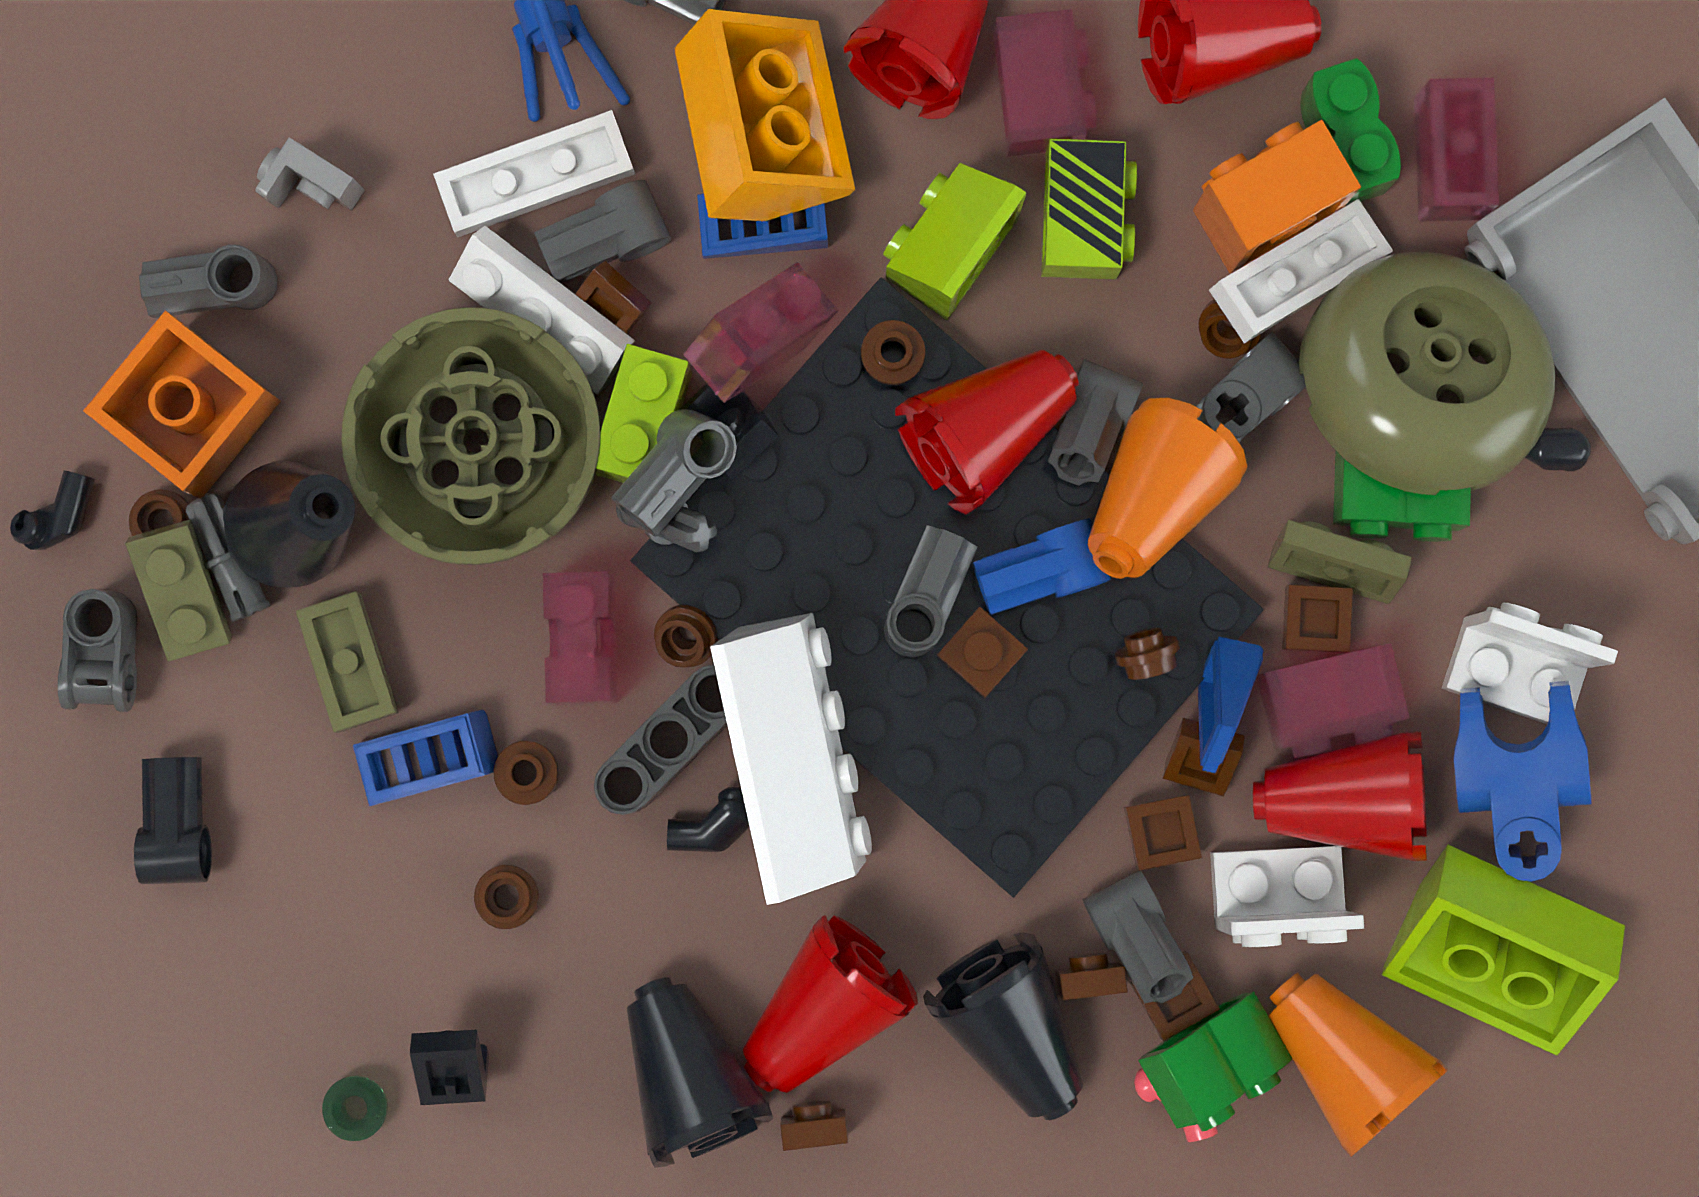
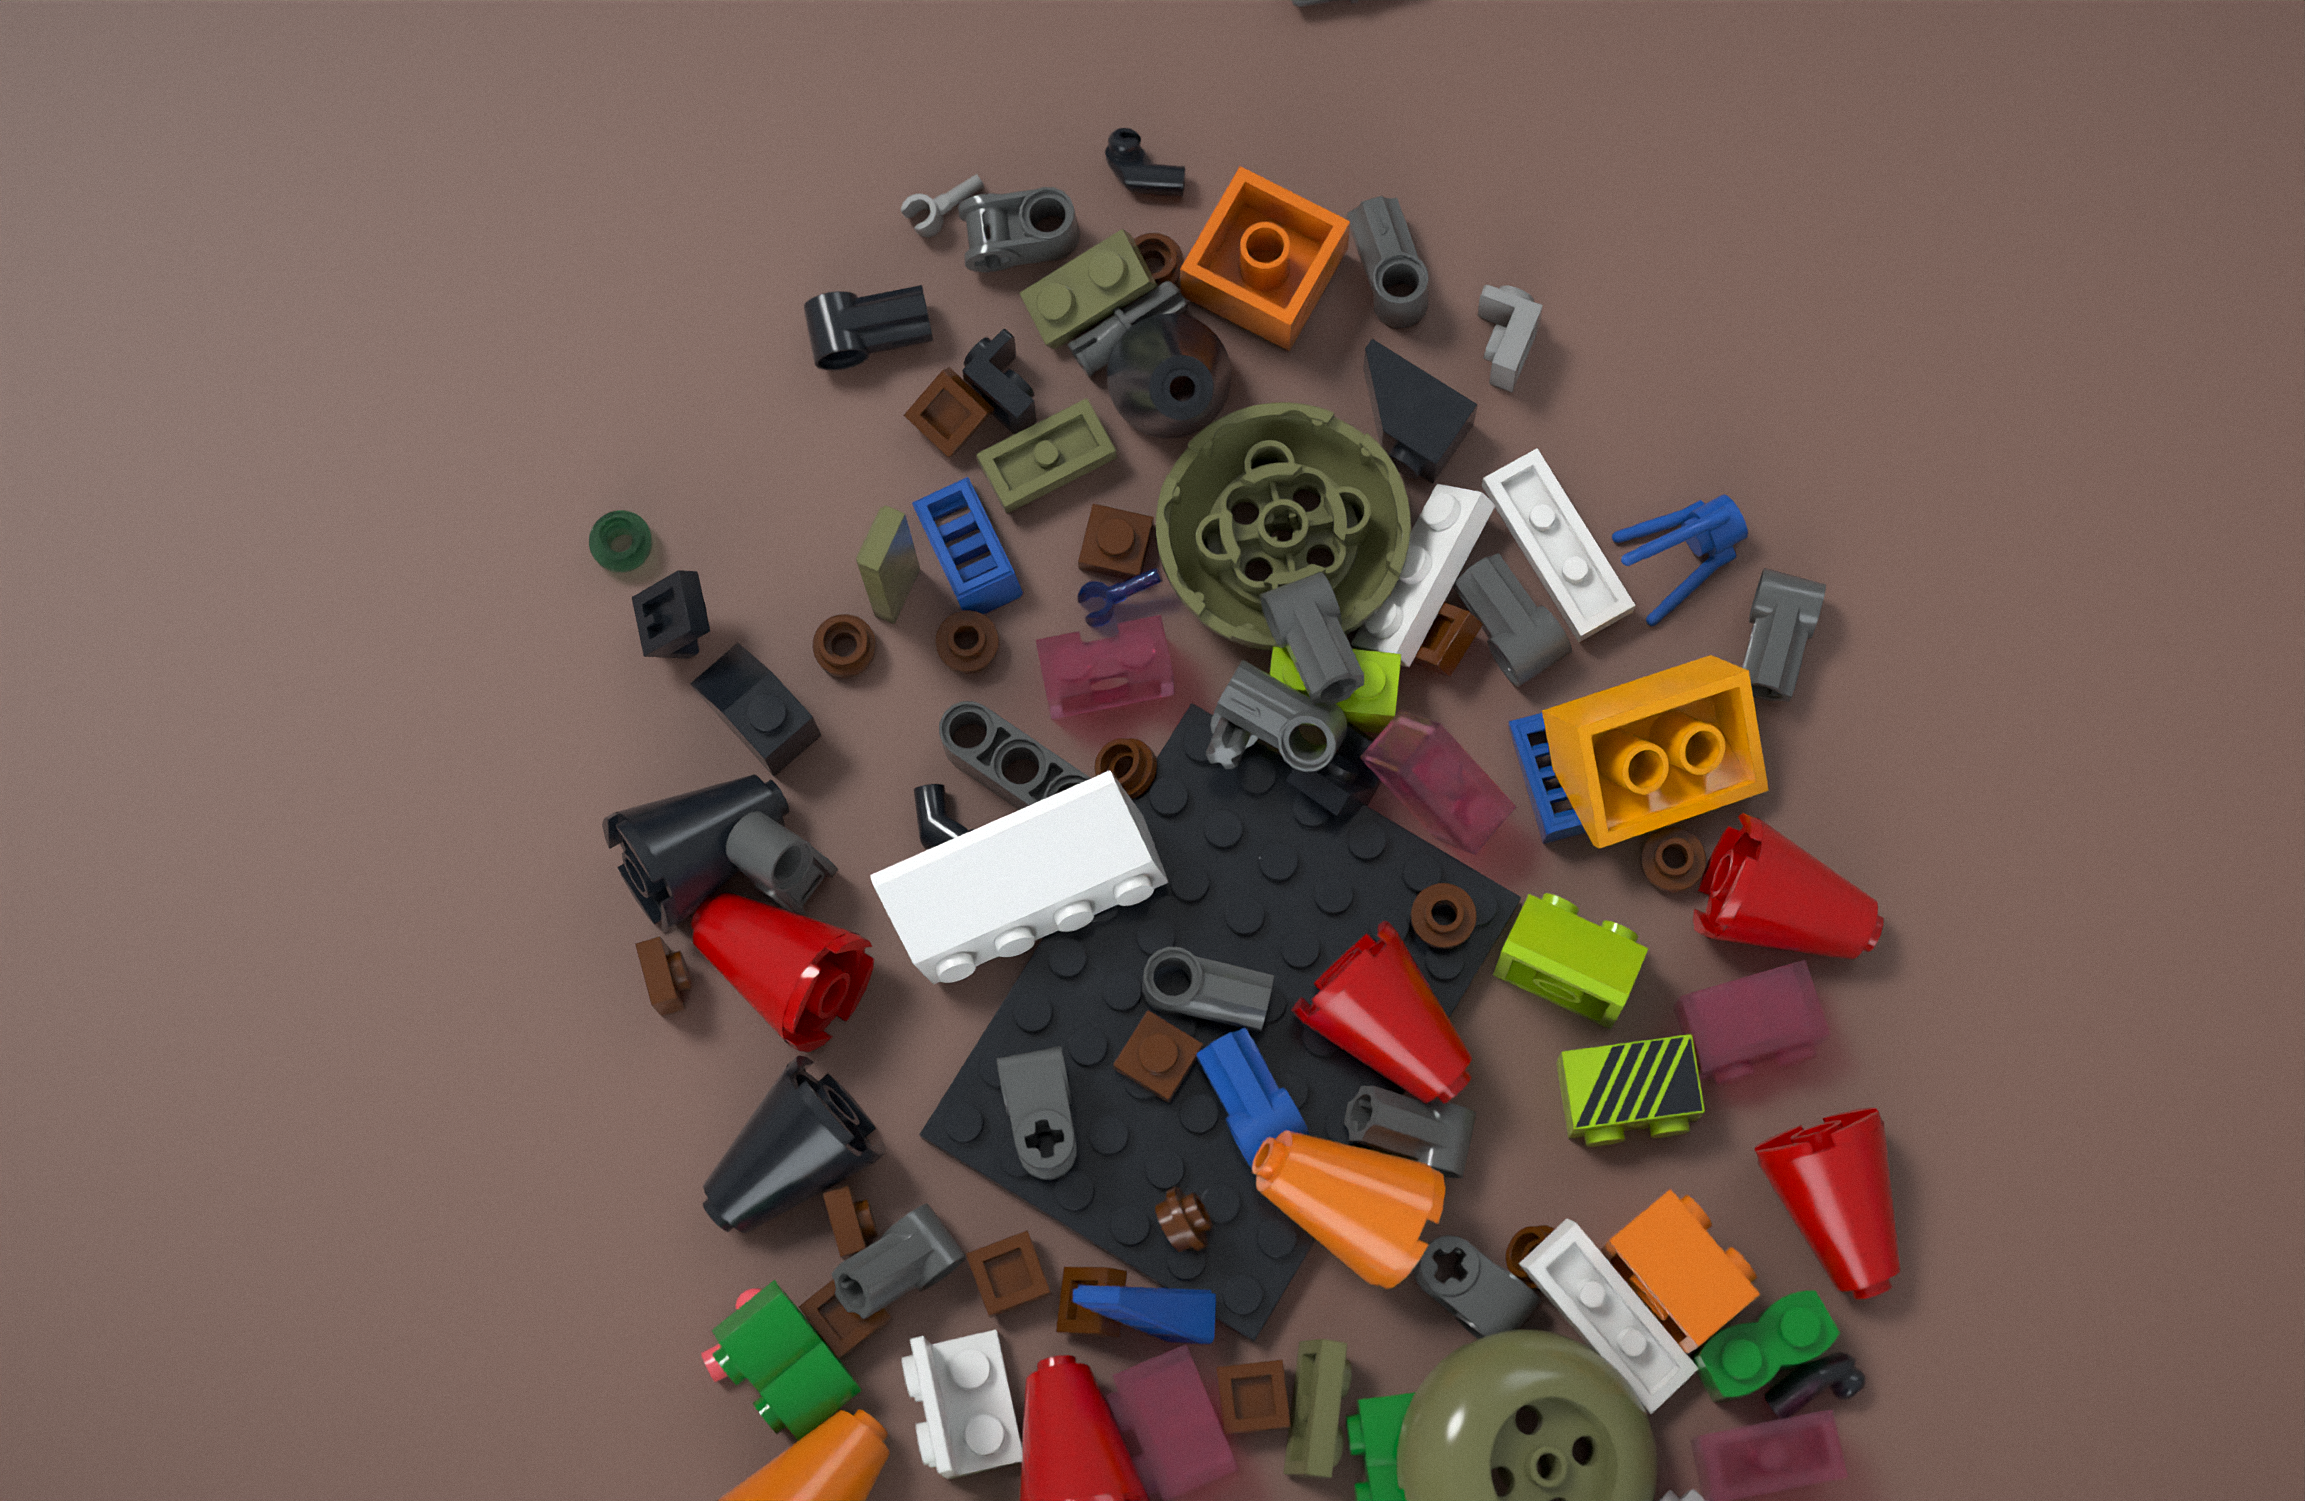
camera: 85 degrees right, 10 degrees down
(54, 726) = (938, 205): none -> light grey hand
(274, 696) = (1004, 392): none -> black bracket
(283, 752) = (949, 412): none -> reddish brown plate
(372, 289) = (1414, 413): none -> black slope
(441, 837) = (888, 563): none -> olive tile
(449, 608) = (1115, 542): none -> reddish brown plate
(503, 613) = (1115, 594): none -> clear blue hand
(554, 996) = (757, 708): none -> black slope
(583, 427) = (1309, 624): none -> dark grey piece
(723, 995) = (777, 861): none -> dark grey piece
(869, 144) = (1668, 878): none -> reddish brown plate
(1005, 775) = (1038, 1102): none -> dark grey piece
(1386, 70) = (1812, 1379): none -> black arm

